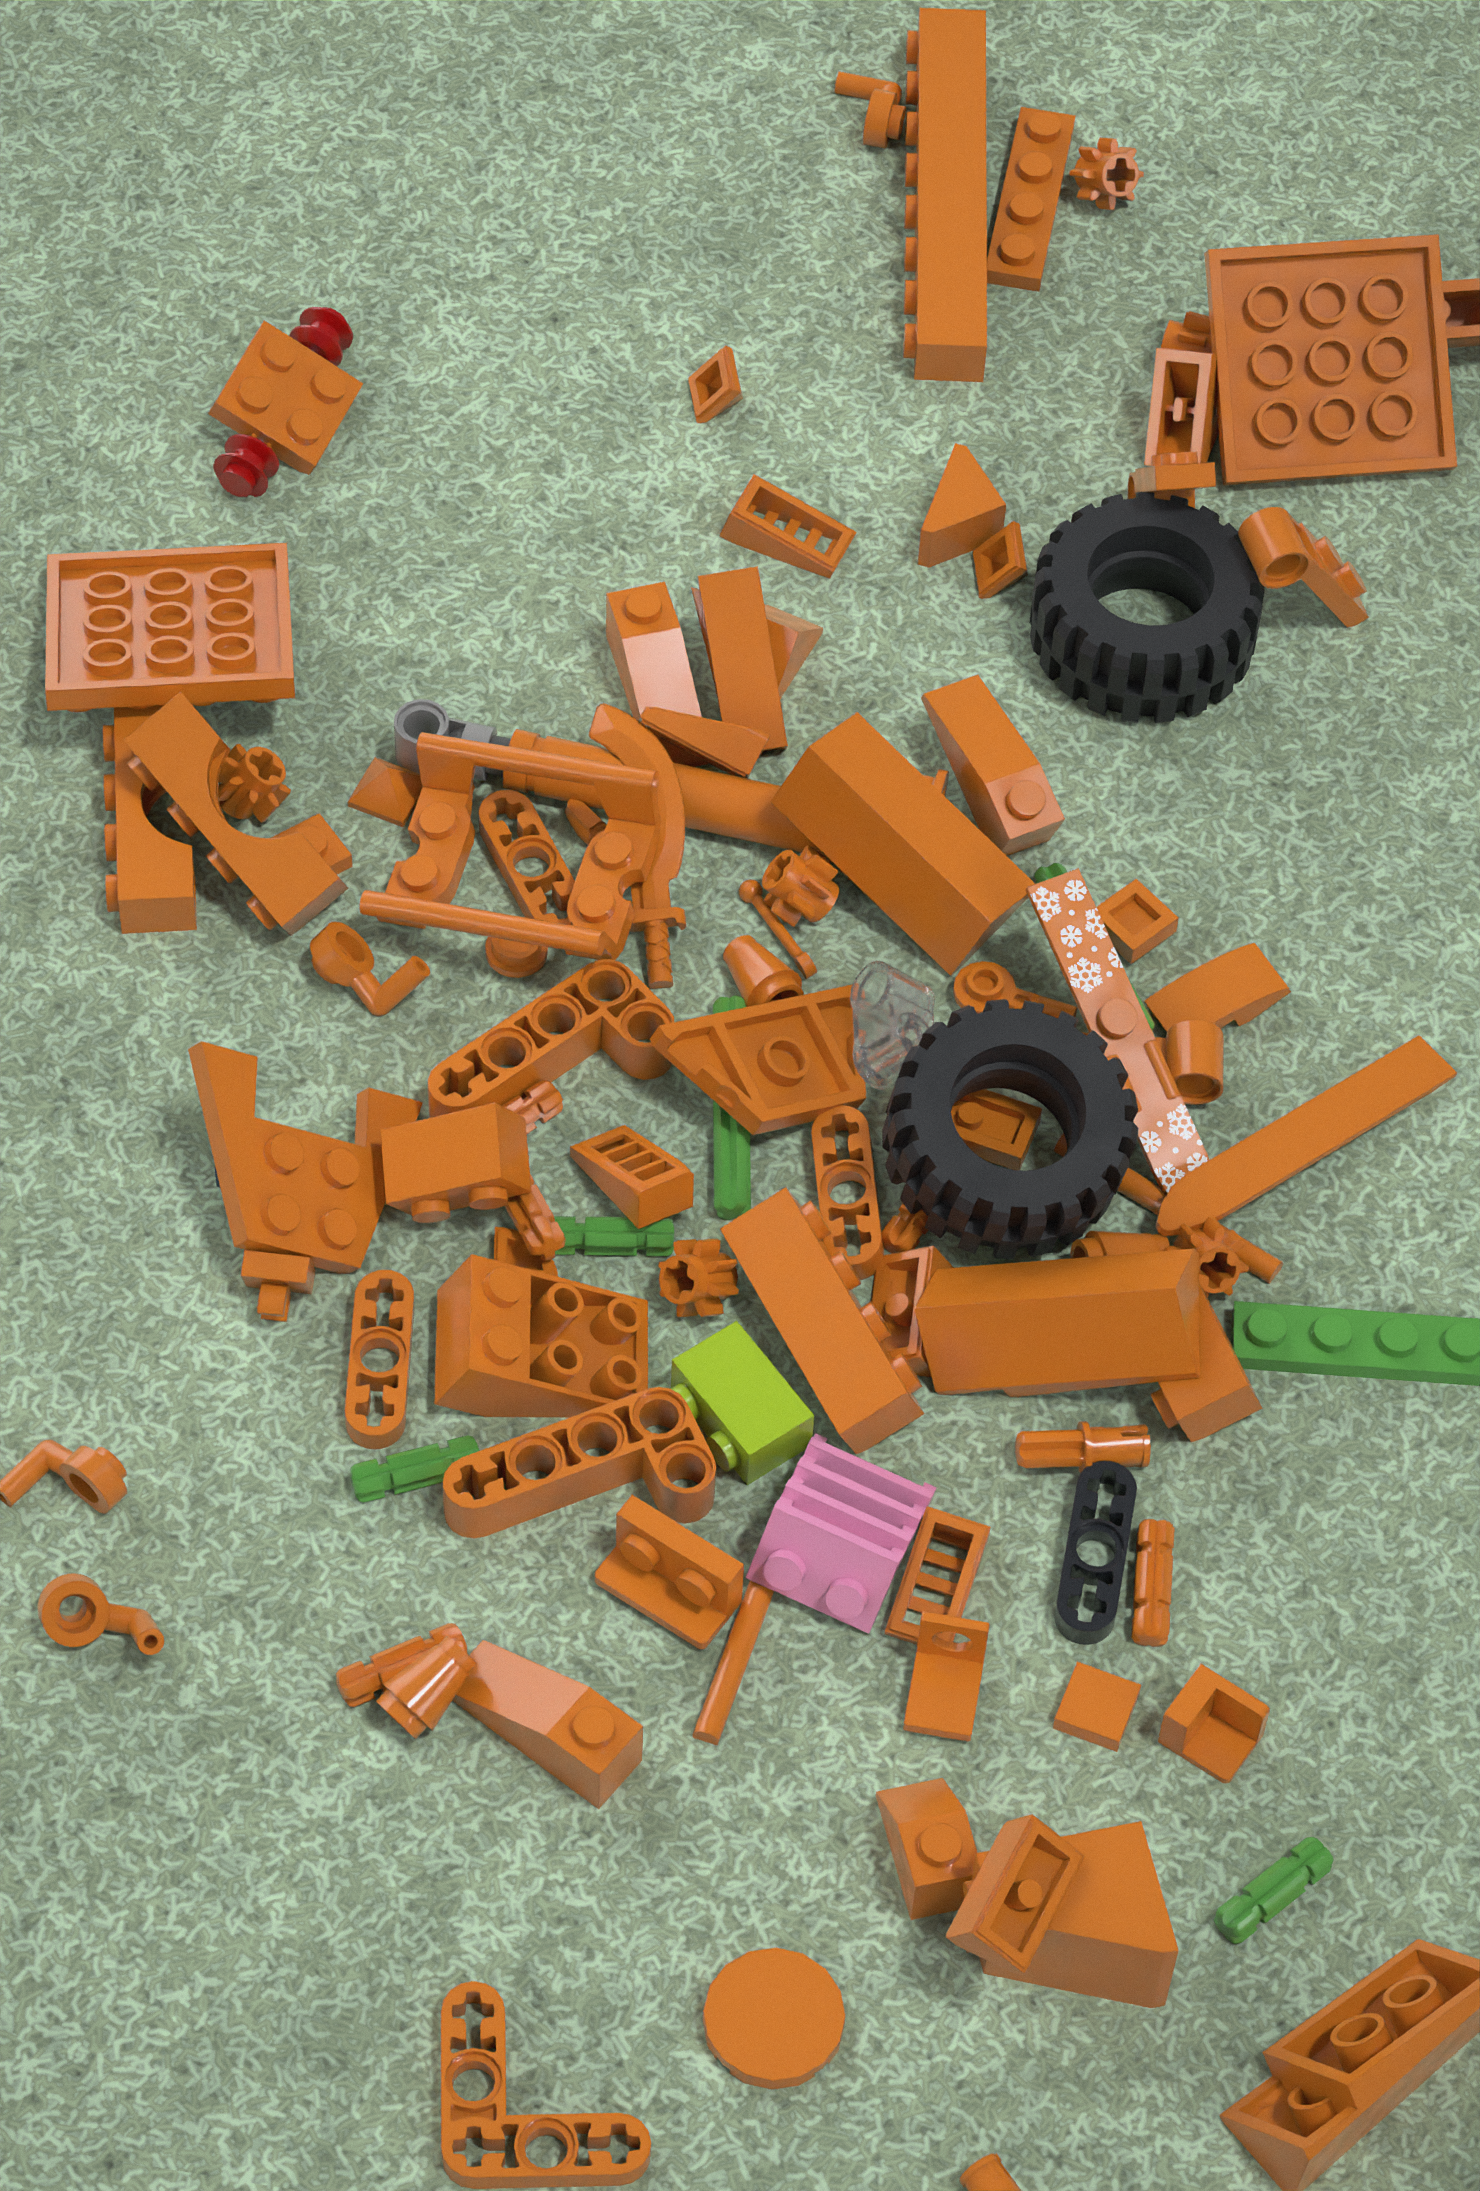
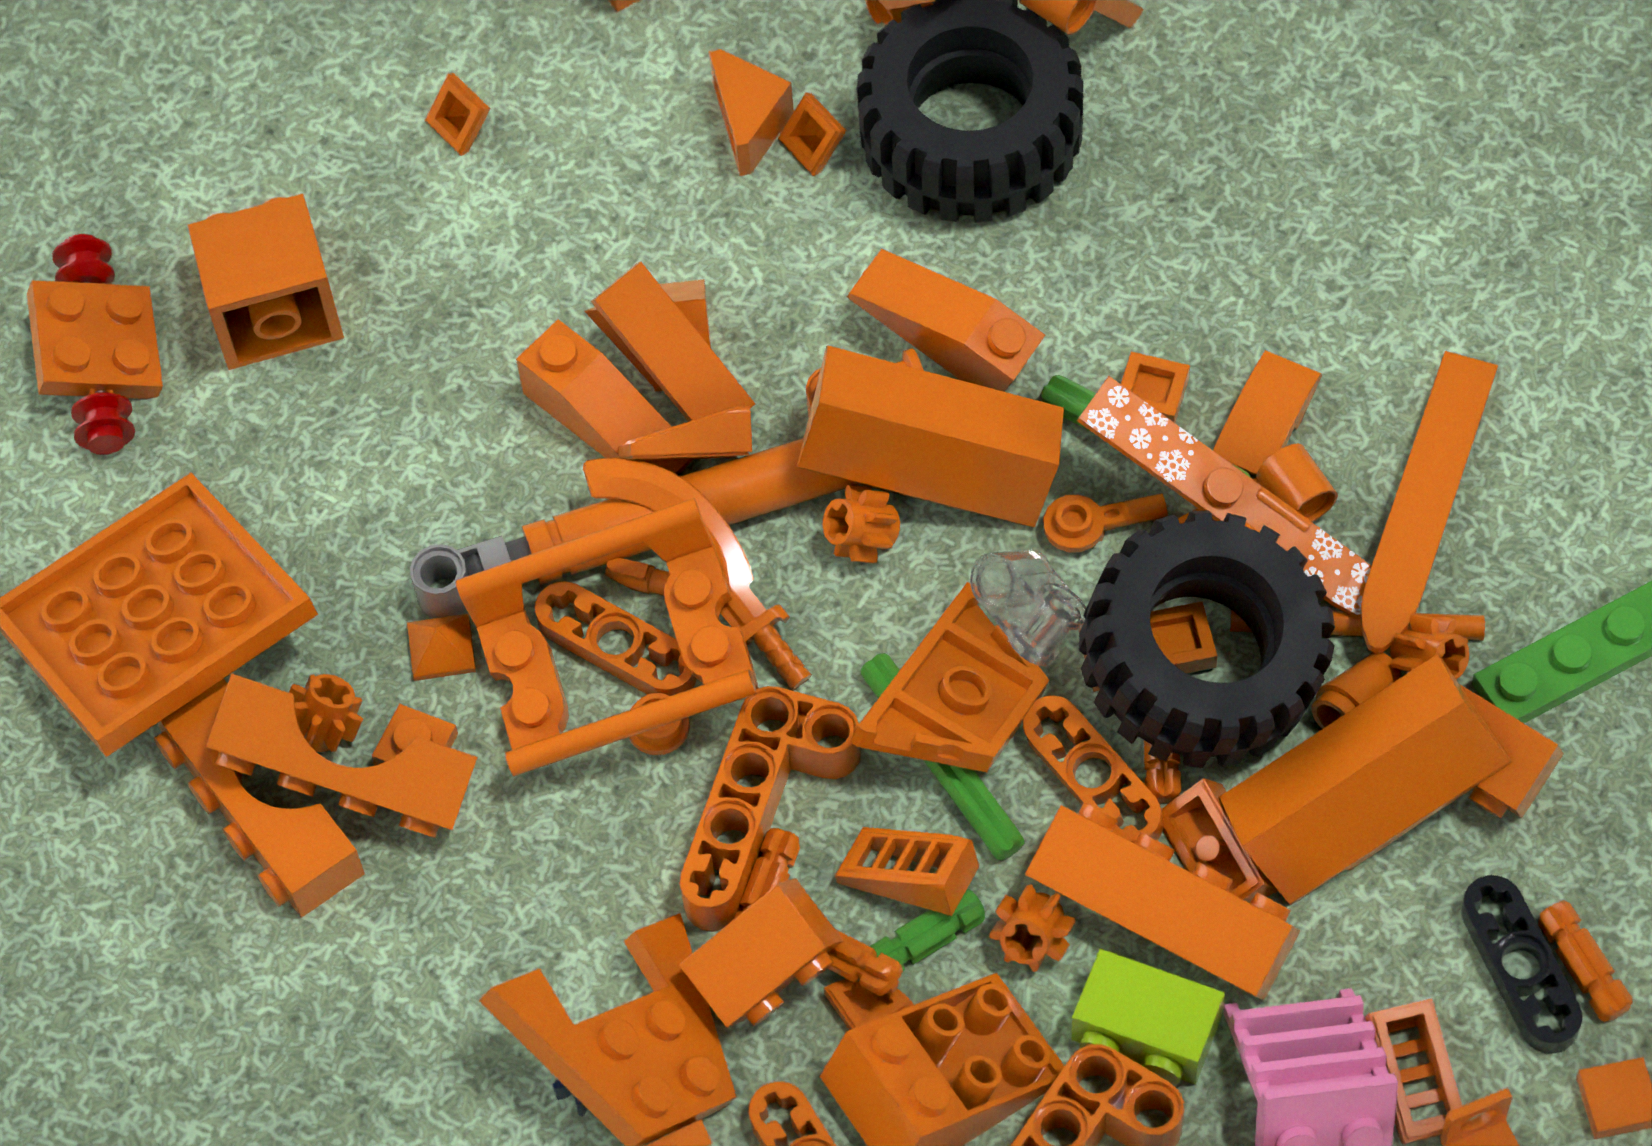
camera: 25 degrees left, 5 degrees up
(347, 960) = (521, 824): orange plate -> none
(453, 427) = (265, 281): none -> orange slope
(751, 892) = (816, 553): orange hinge -> none
(760, 973) = (885, 624): orange cone -> none
(763, 537) = (594, 228): orange slope -> none
(1084, 1446) = (1447, 878): orange axle -> none

